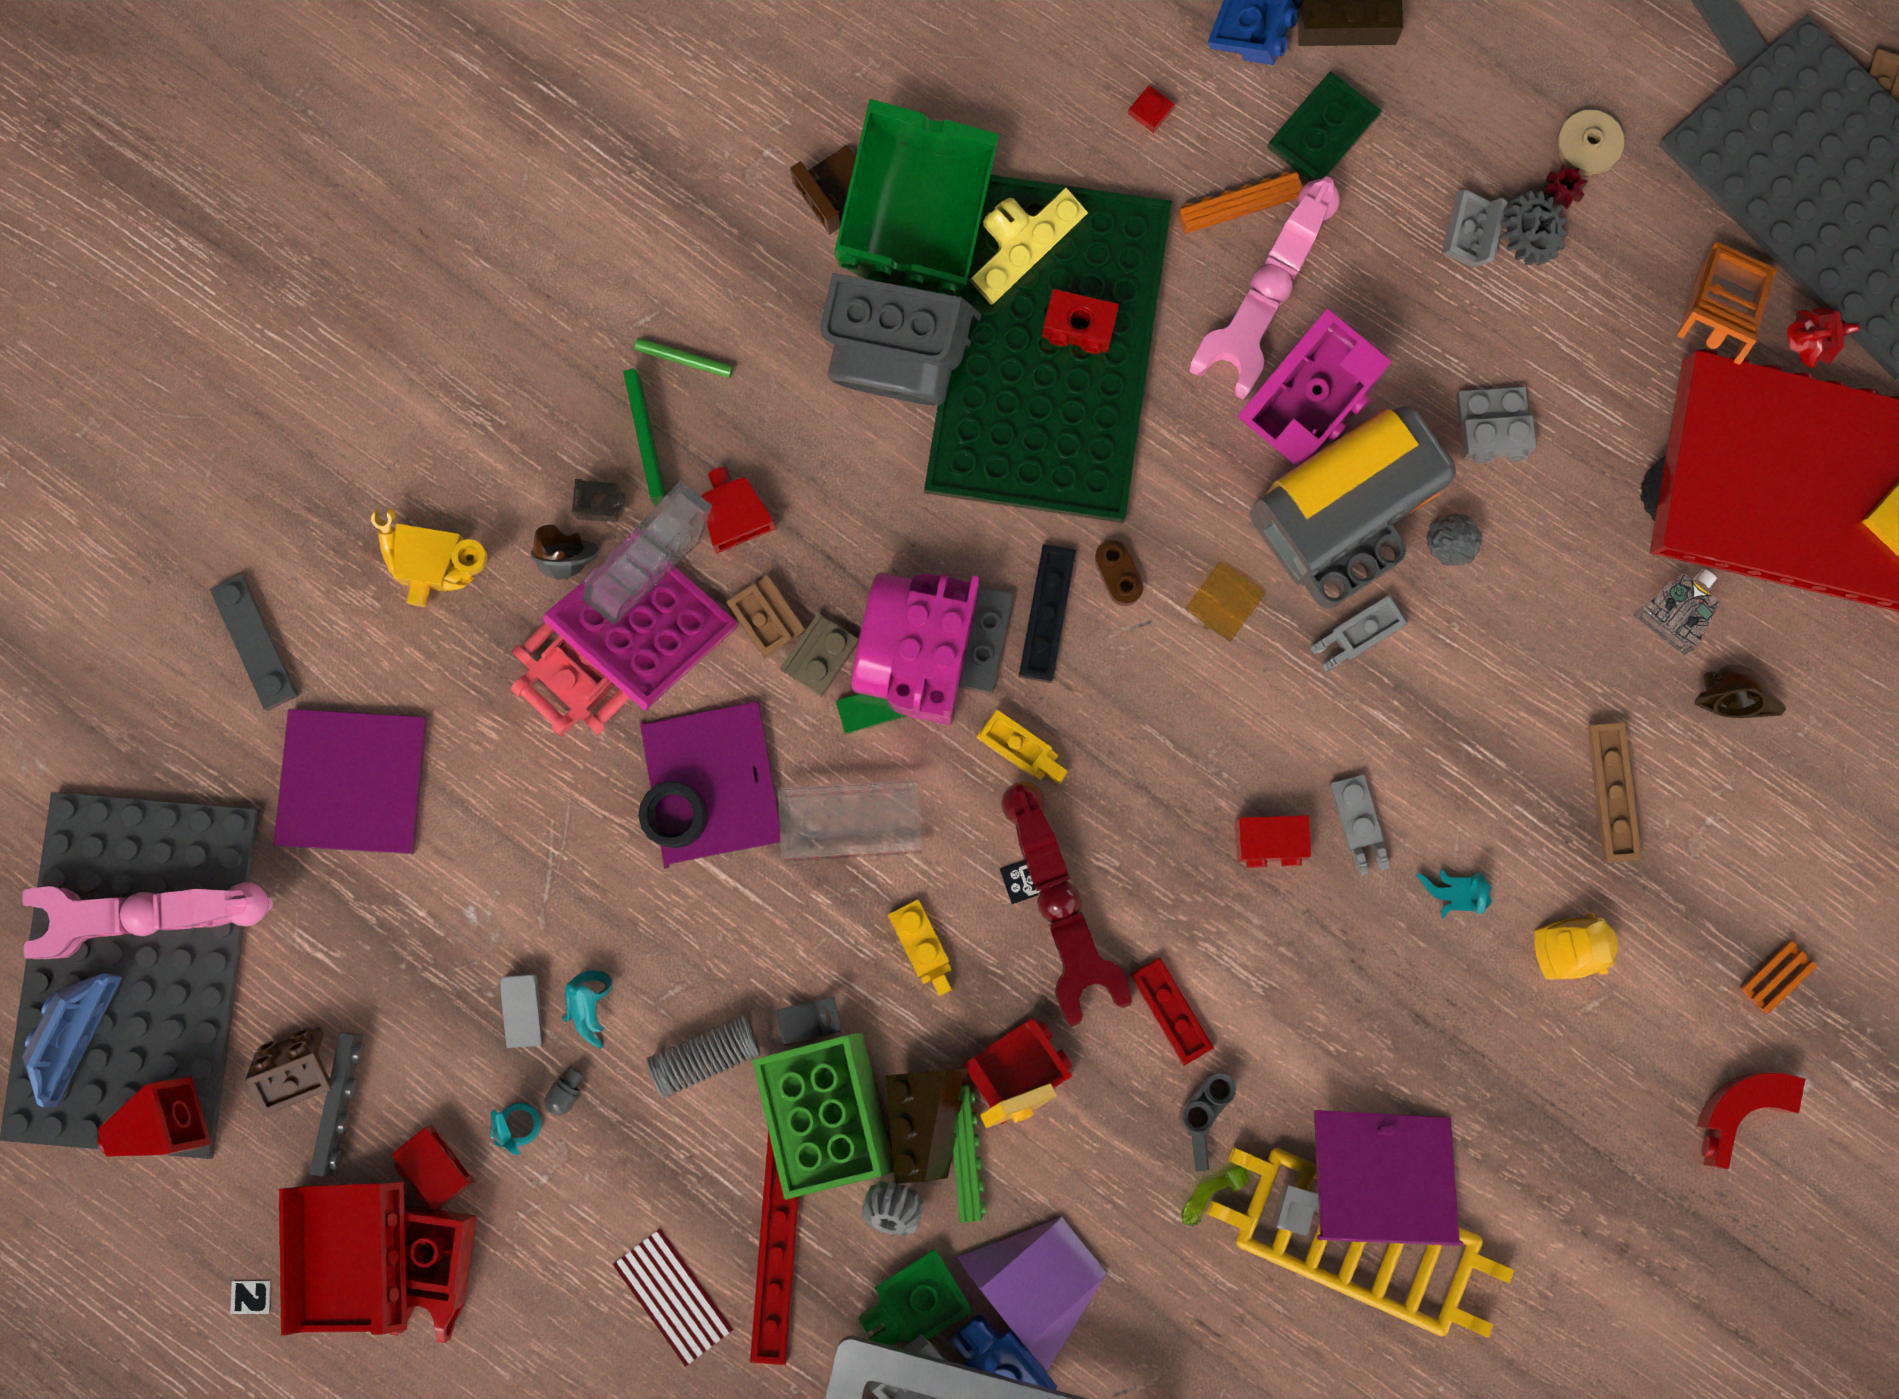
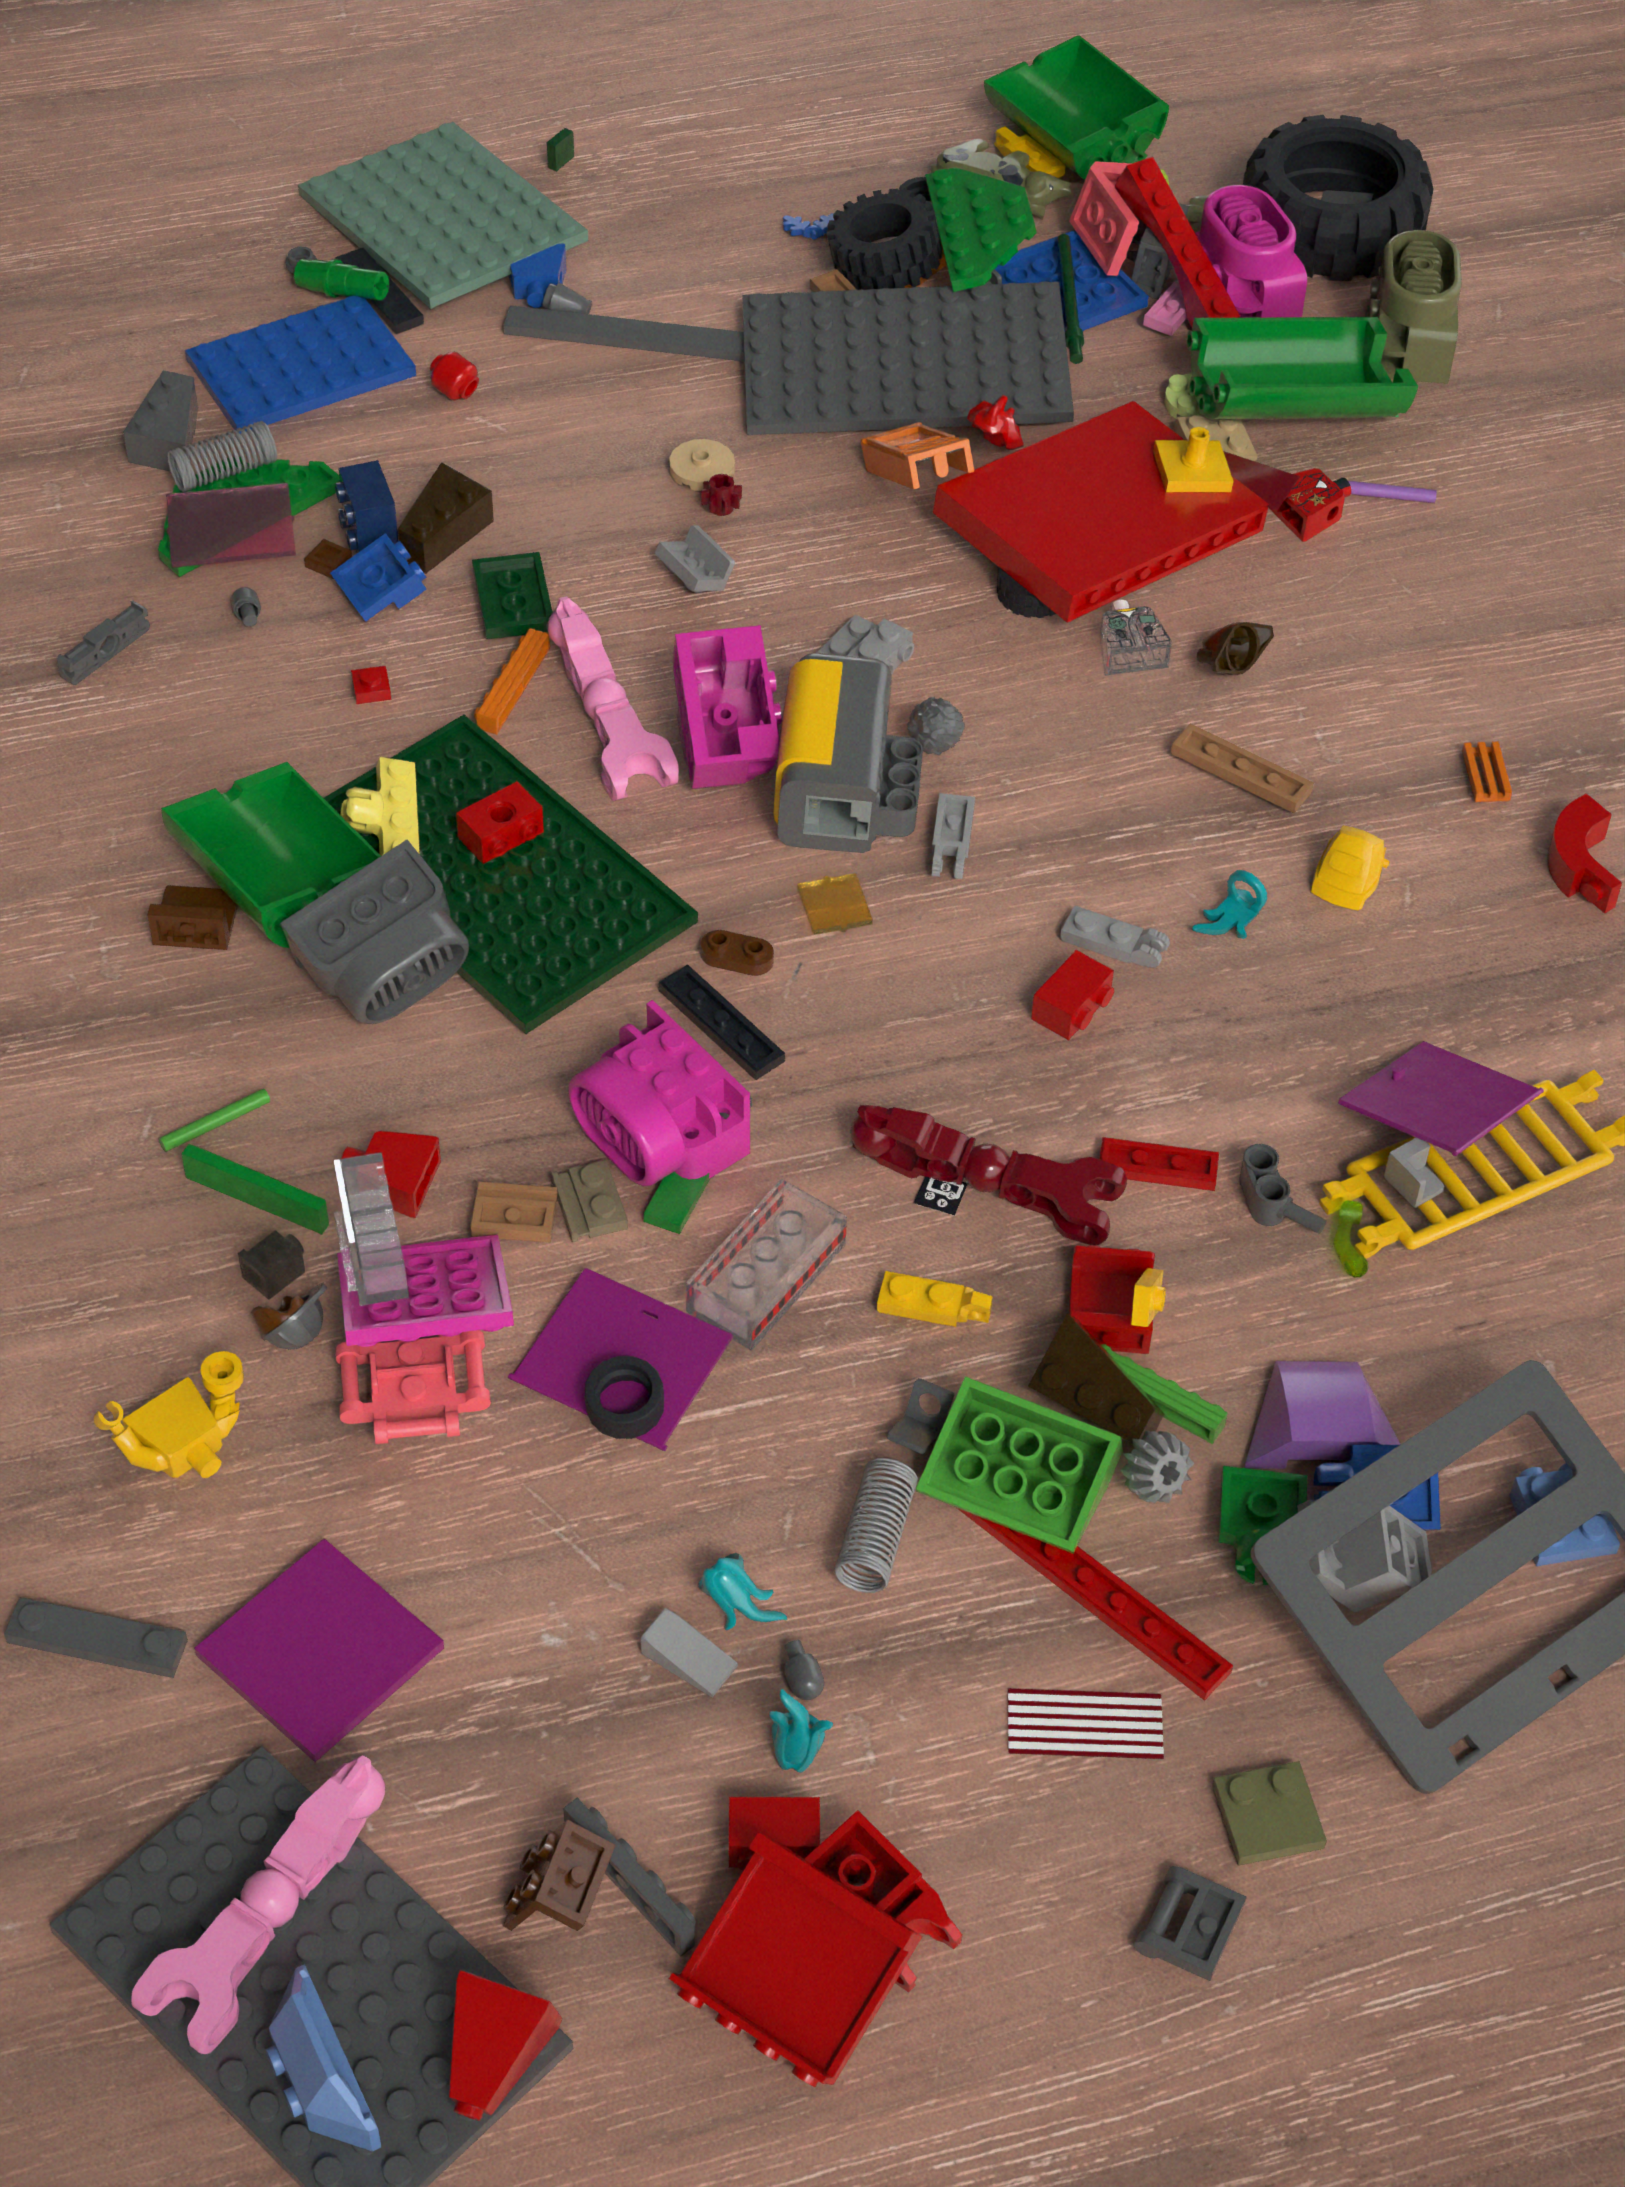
camera: 55 degrees left, 30 degrees down
(250, 1297) = (751, 2114): sticker -> none
(1021, 748) = (820, 1109): yellow hinge -> none
(1534, 228) = (735, 527): dark grey gear -> none

